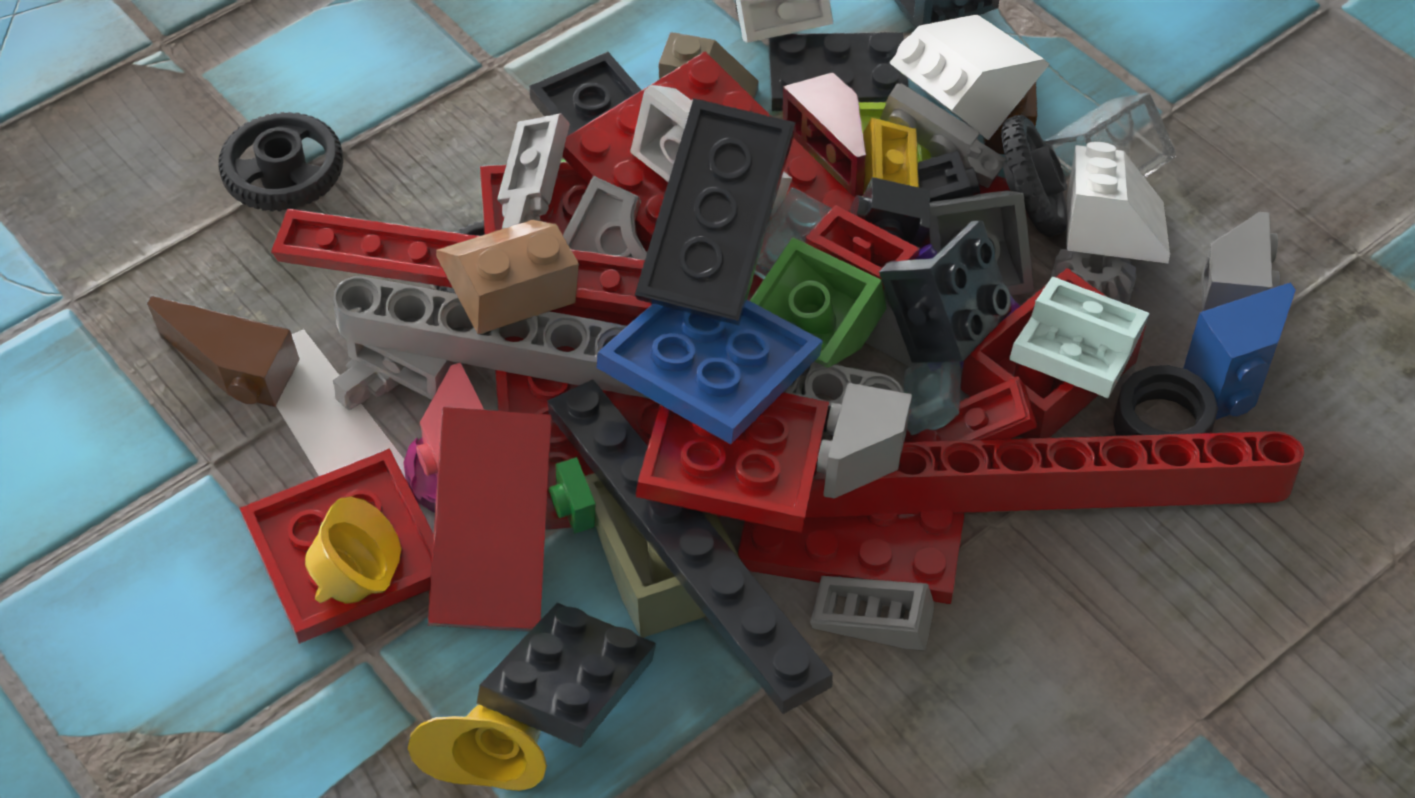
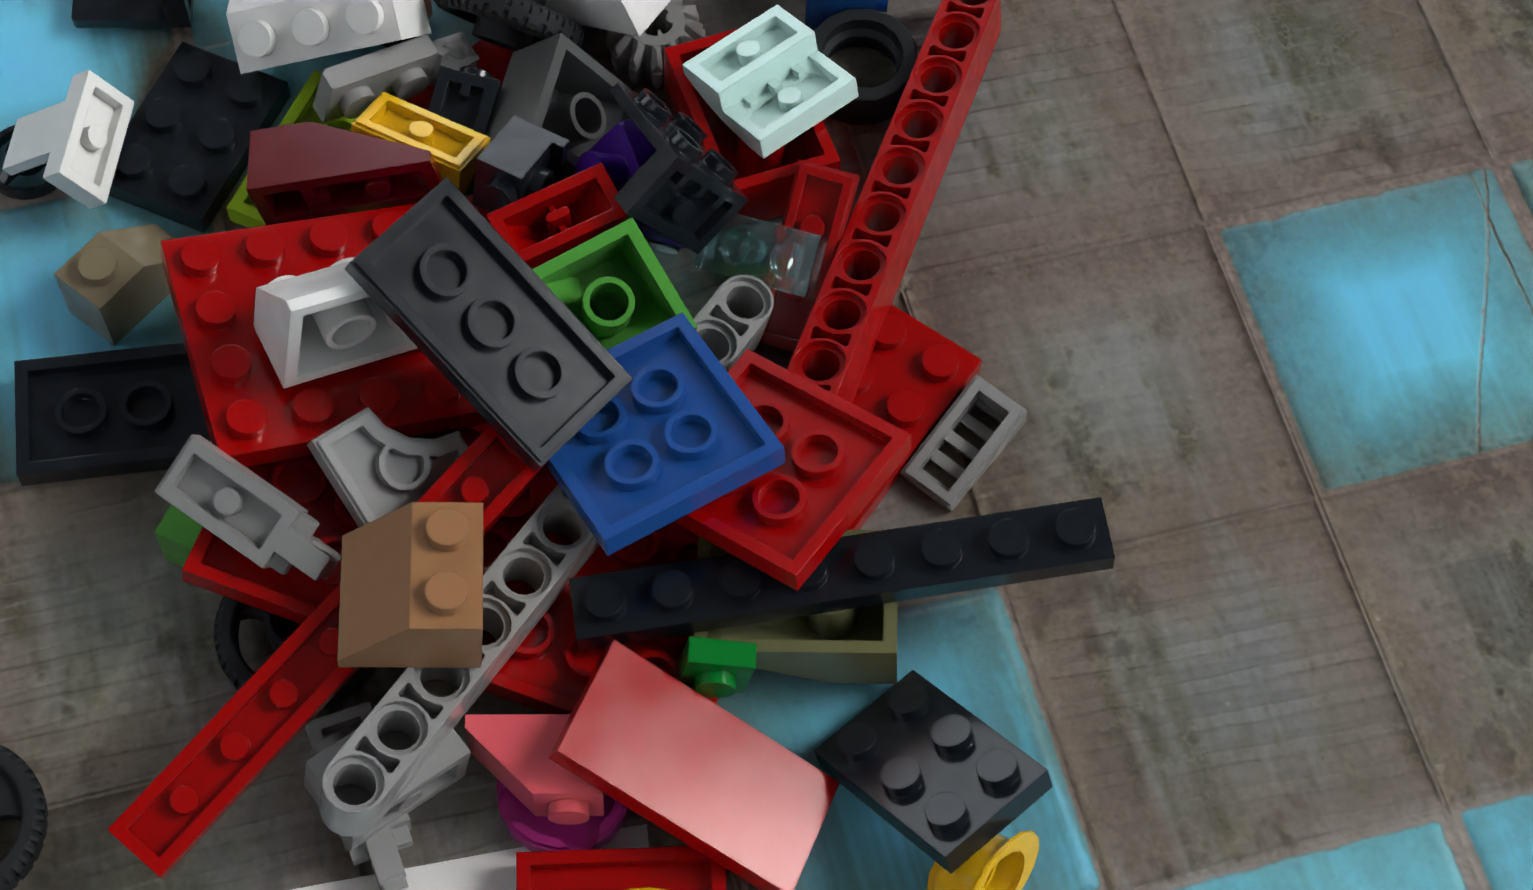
camera: 70 degrees left, 10 degrees up
(866, 438) = (810, 332): light grey slope -> none

